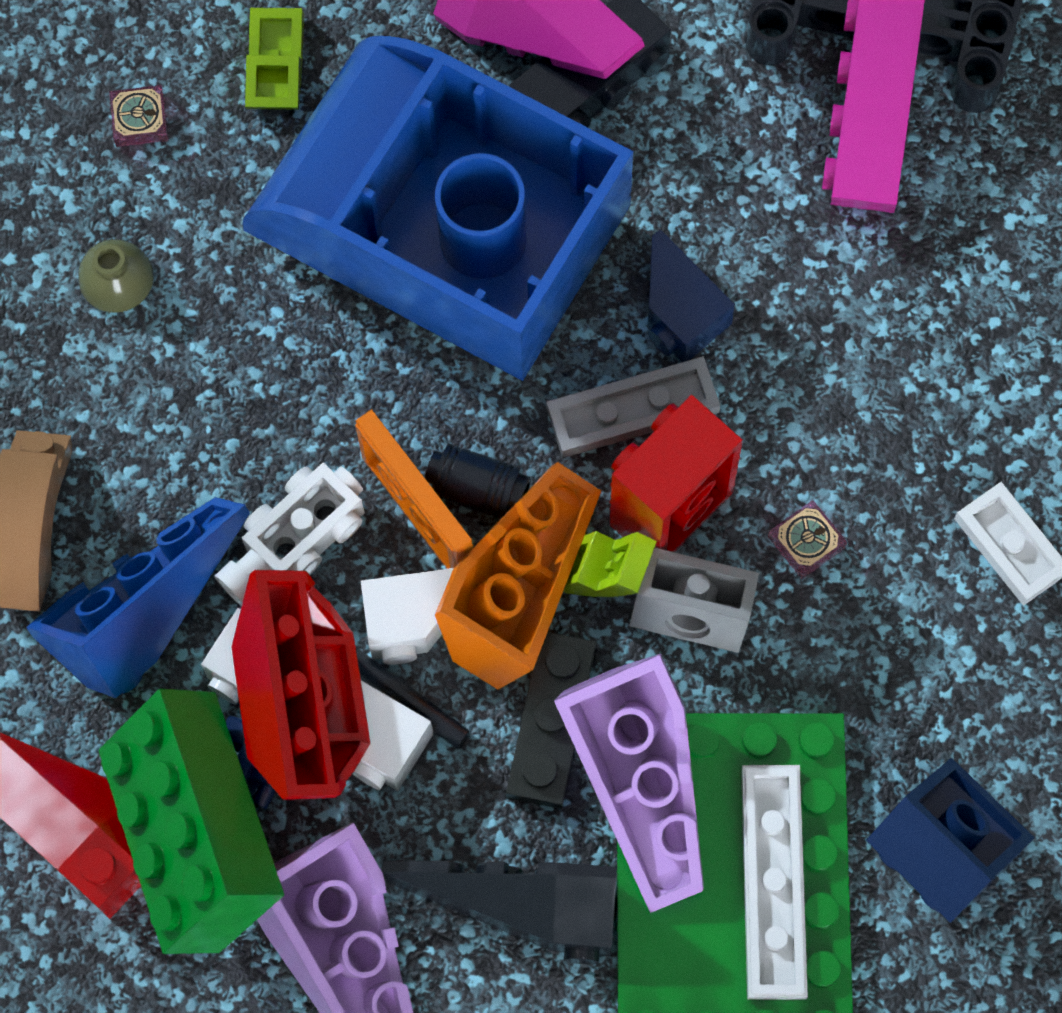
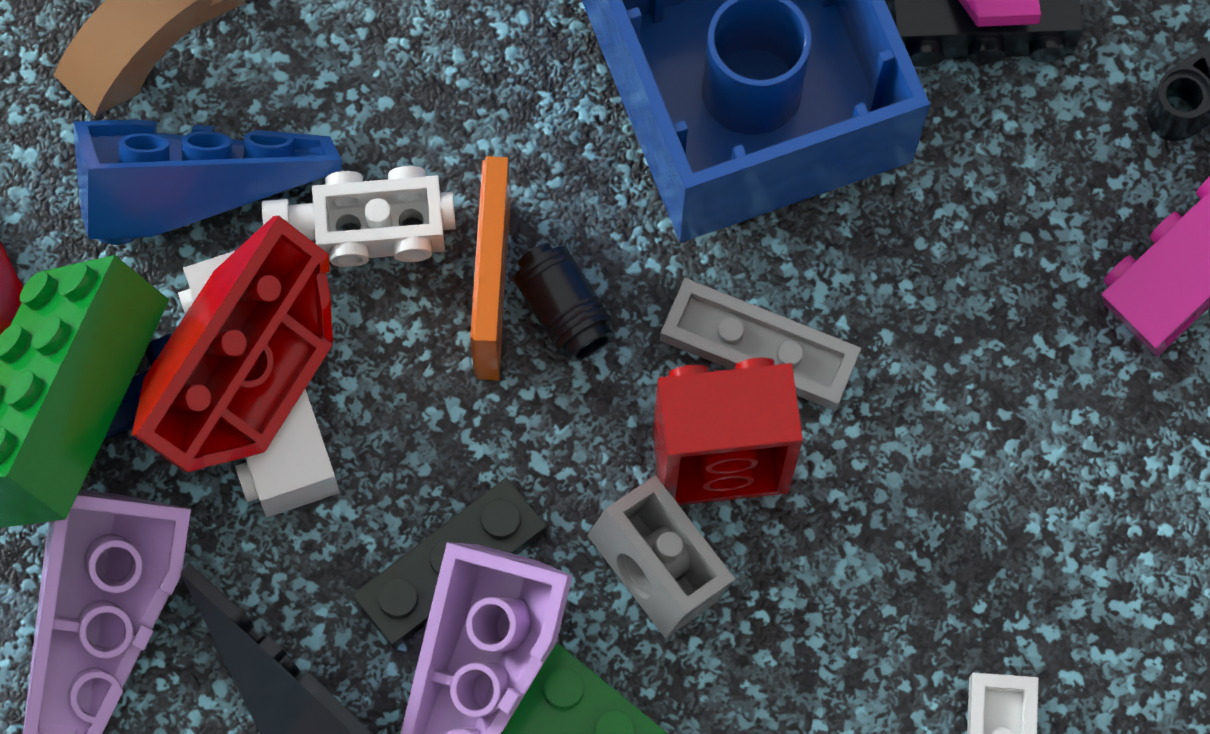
camera: 35 degrees right, 0 degrees up
(395, 688) = (341, 440): black bar -> none
(403, 614) = (408, 369): white slope -> none
(514, 578) = (514, 408): orange wedge -> none
(610, 565) = (609, 464): lime slope -> none
(684, 304) = (883, 285): dark blue slope -> none
(807, 539) = (817, 588): tile -> none

